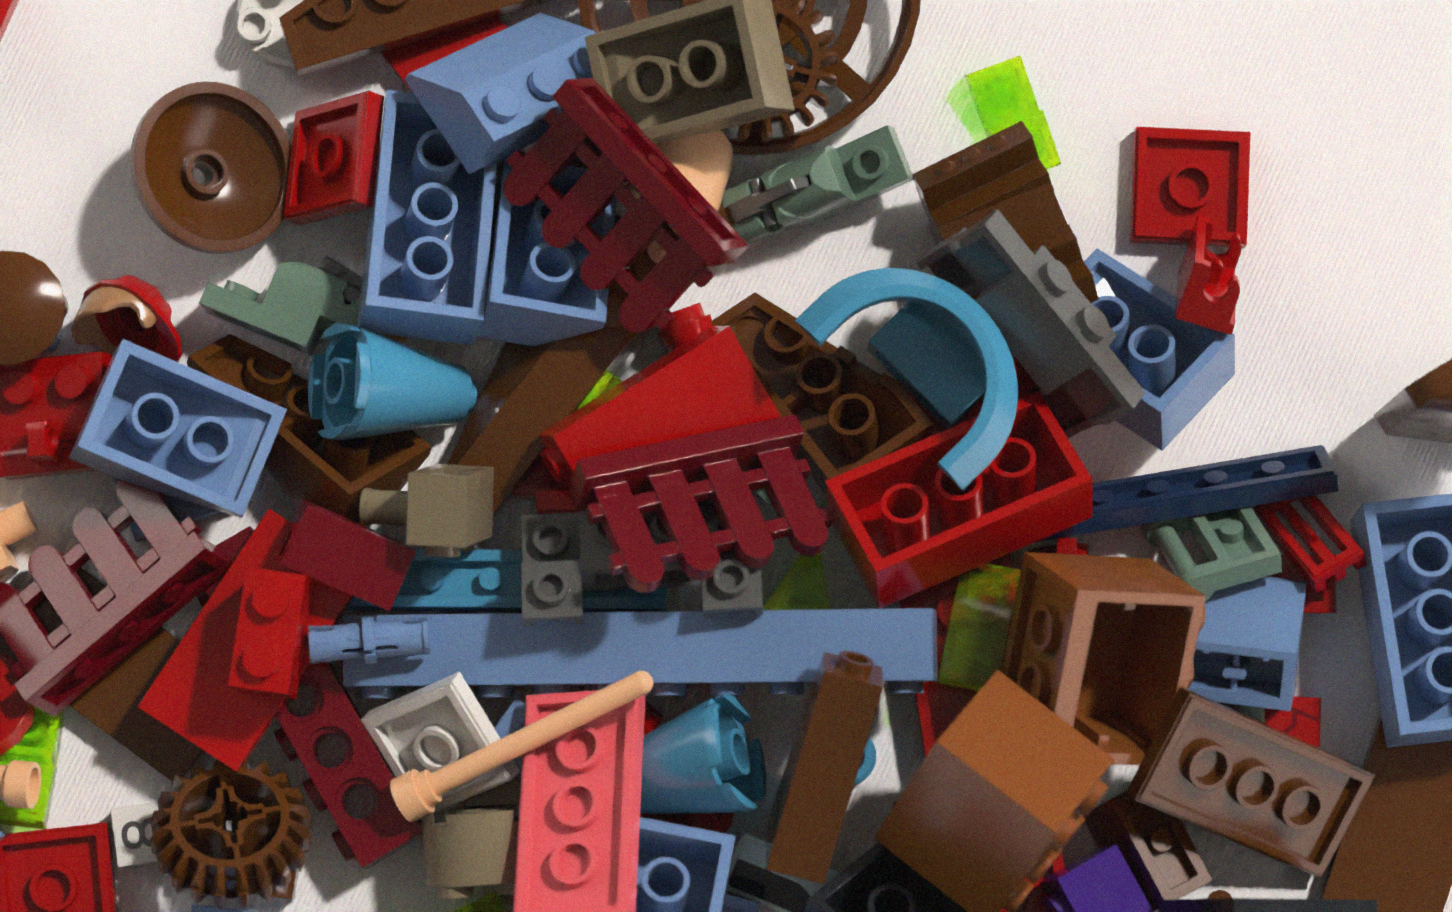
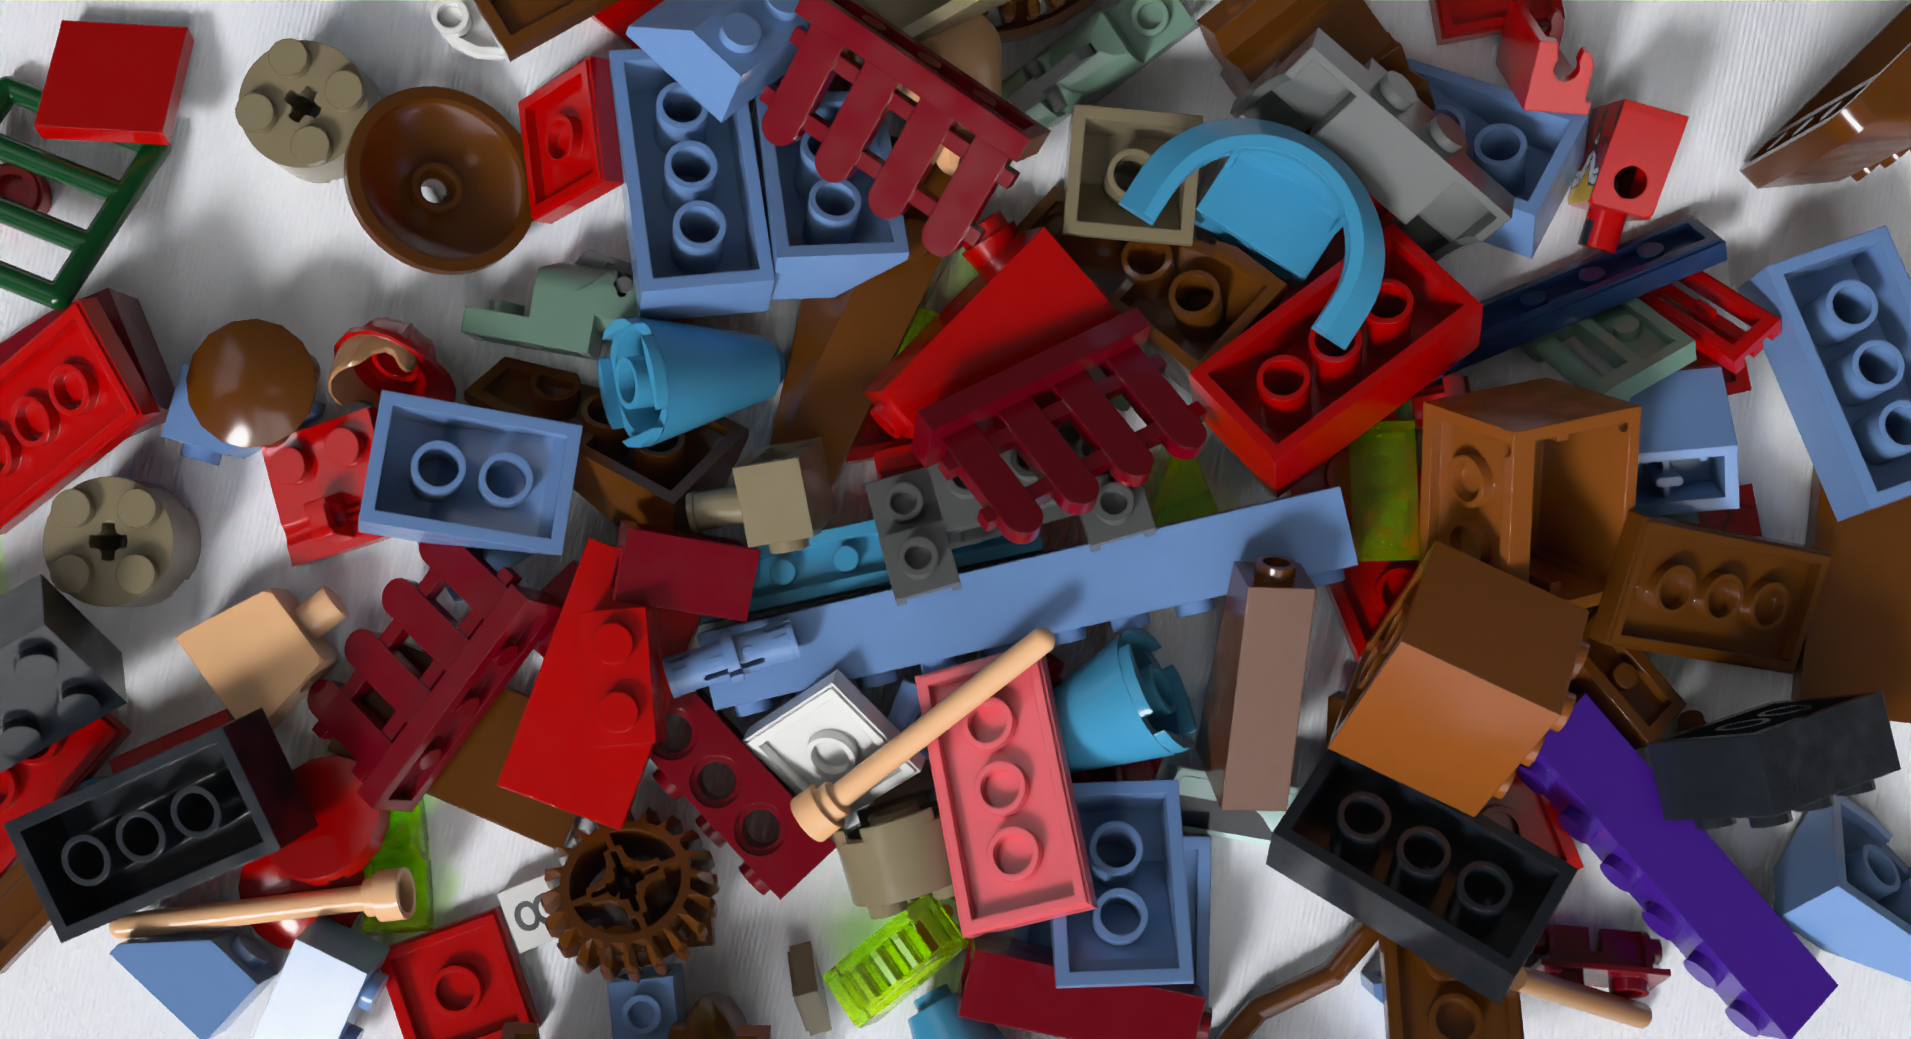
camera: 20 degrees left, 5 degrees up
(95, 55) = (284, 90): none -> dark tan brick
(797, 275) = (1102, 161): none -> dark tan slope
(1276, 370) = (1635, 147): none -> red torso

